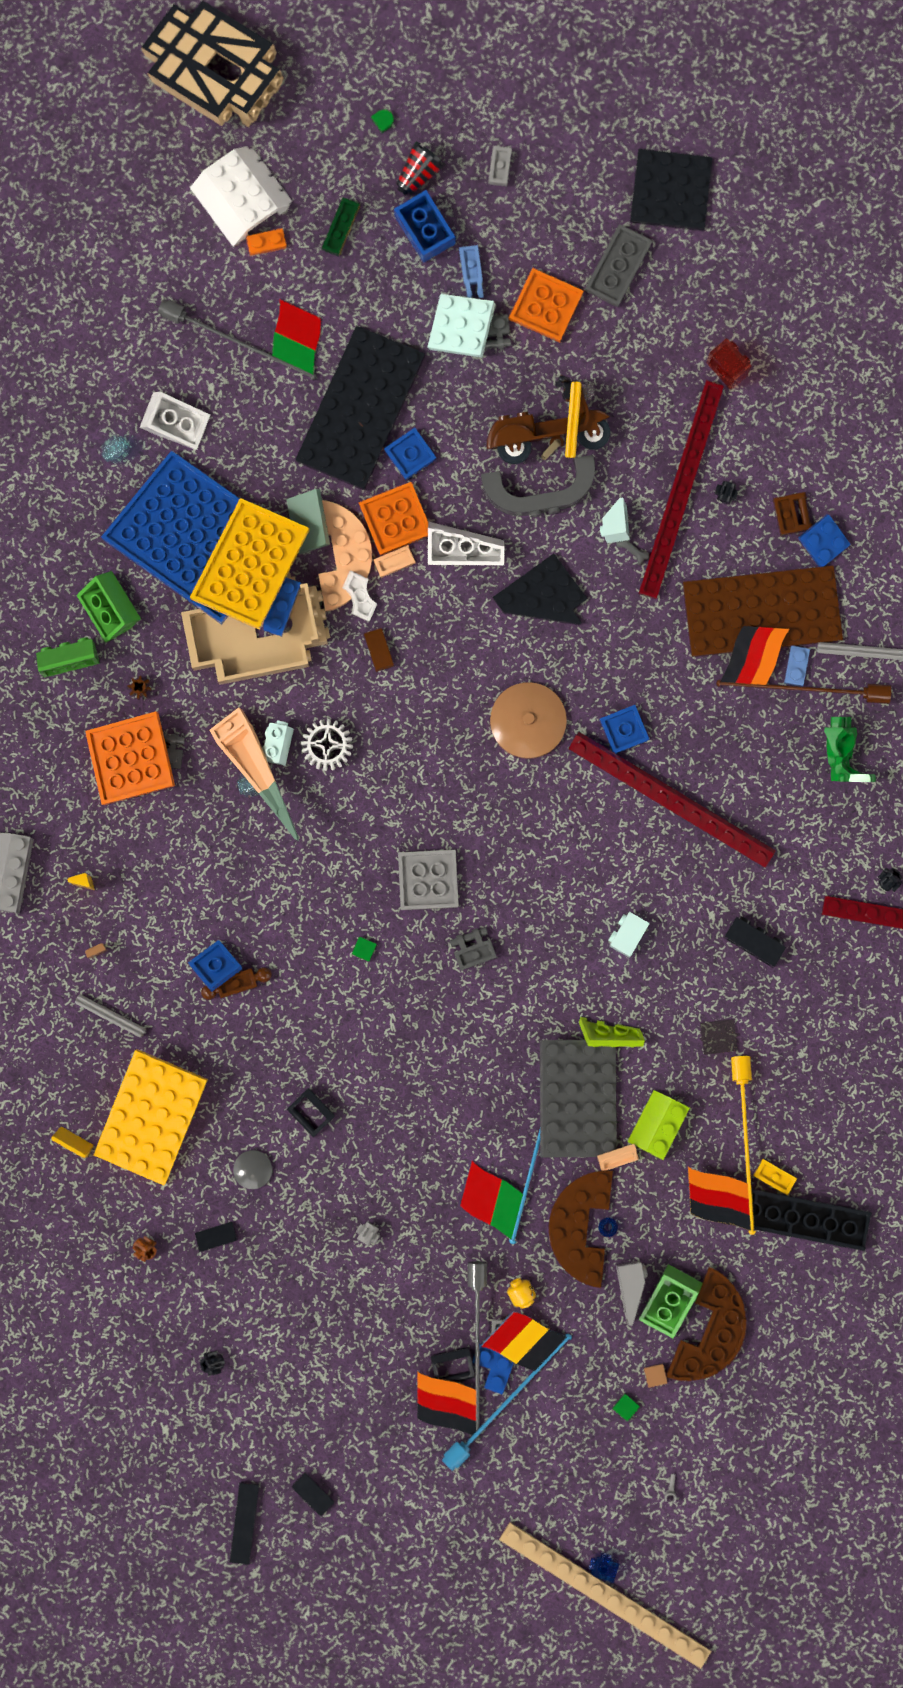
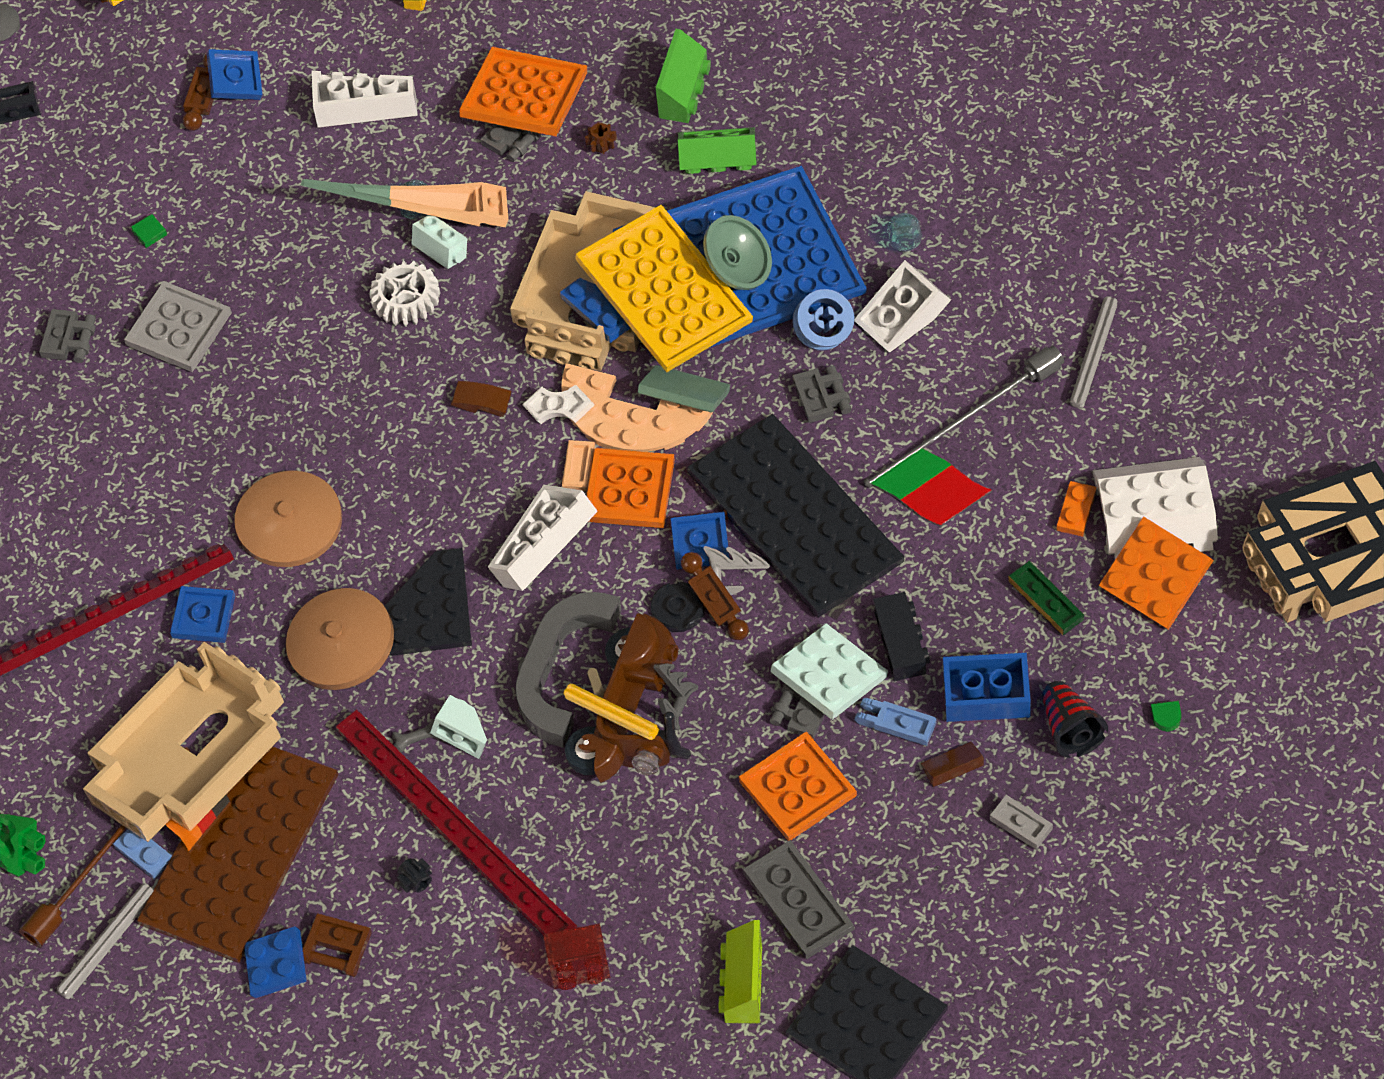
camera: 125 degrees right, 25 degrees down
(145, 287) = (1093, 352): none -> light grey axle
(193, 870) = (361, 98): none -> white wedge
(200, 529) = (737, 252): none -> sand green dish
(213, 453) = (841, 317): none -> medium blue wheel
(268, 441) = (814, 397): none -> dark grey plate
(292, 167) = (1156, 572): none -> orange plate
(414, 297) = (901, 636): none -> black brick
(421, 430) = (720, 561): none -> light grey piece
(446, 421) = (714, 596): none -> reddish brown plate
(456, 444) = (675, 614): none -> black tile
(481, 225) = (953, 764): none -> reddish brown slope
(521, 407) = (680, 689): none -> dark grey piece
(596, 633) = (339, 639): none -> medium nougat dish
(686, 266) = (742, 974): none -> lime slope
(750, 682) = (154, 779): none -> tan panel

